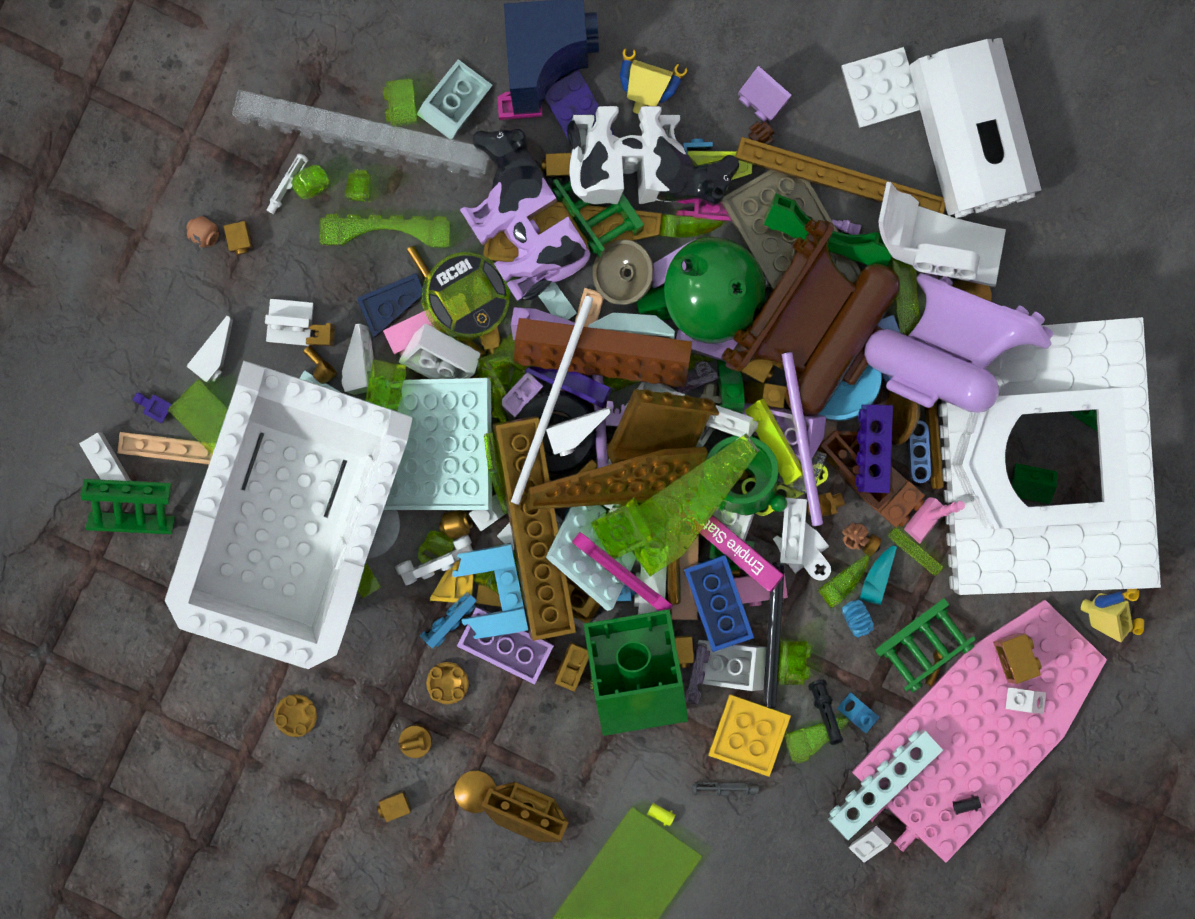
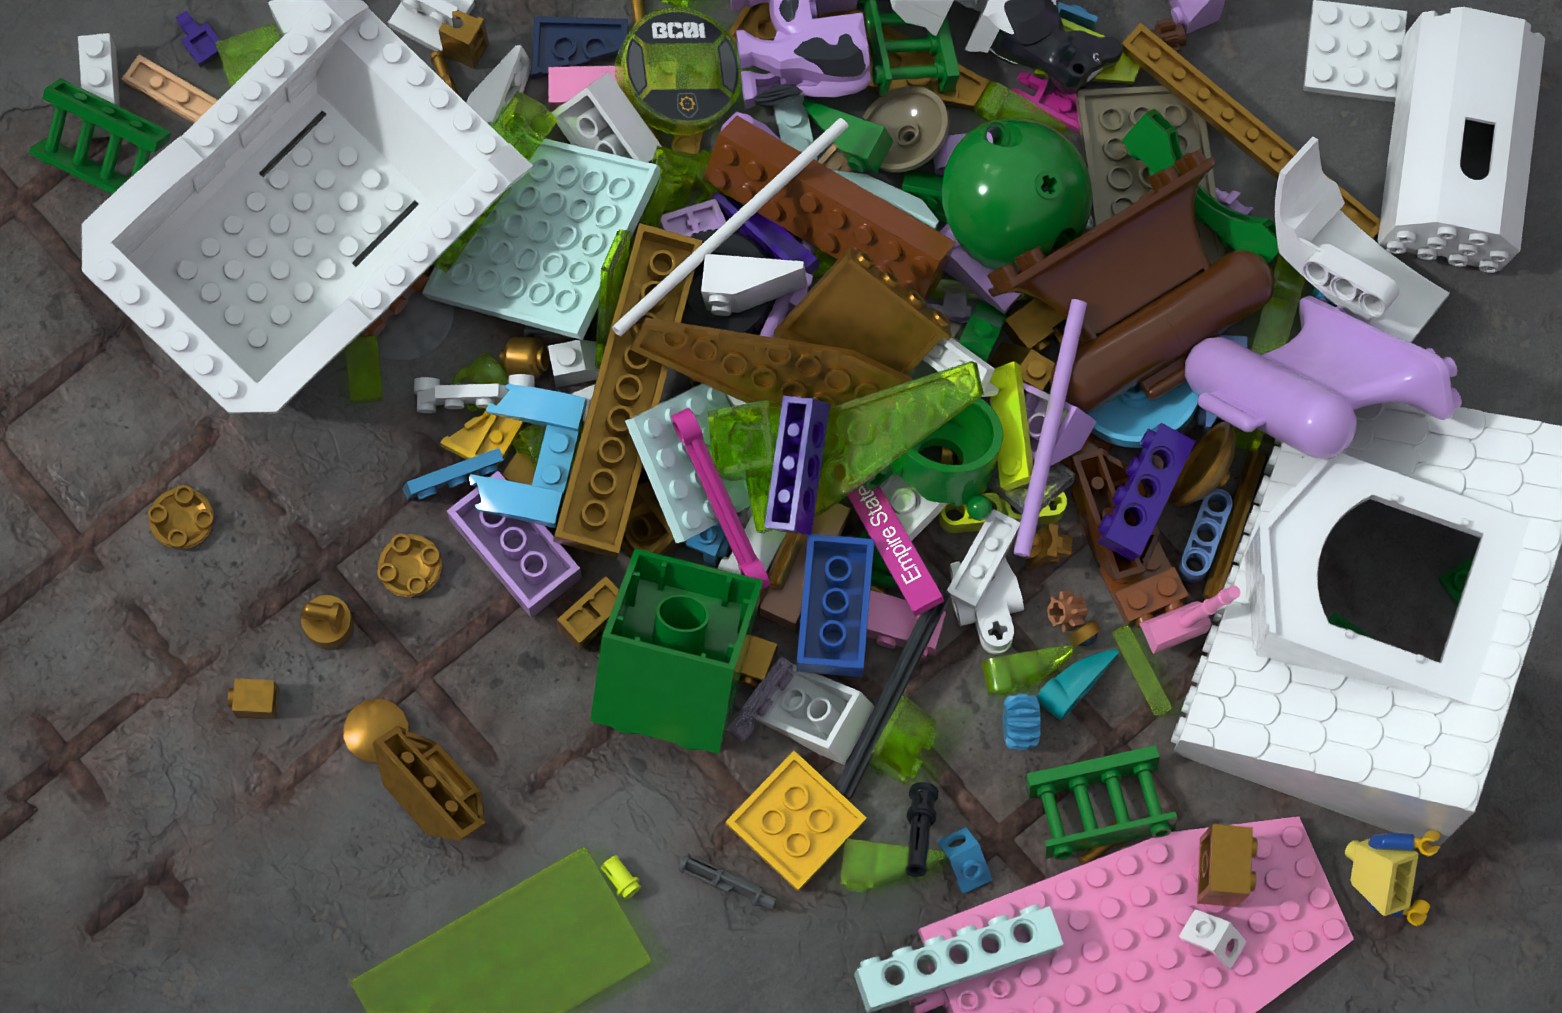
camera: 25 degrees right, 15 degrees down
(605, 295) = (861, 144): none -> green slope
(661, 535) = (797, 465): none -> dark purple brick

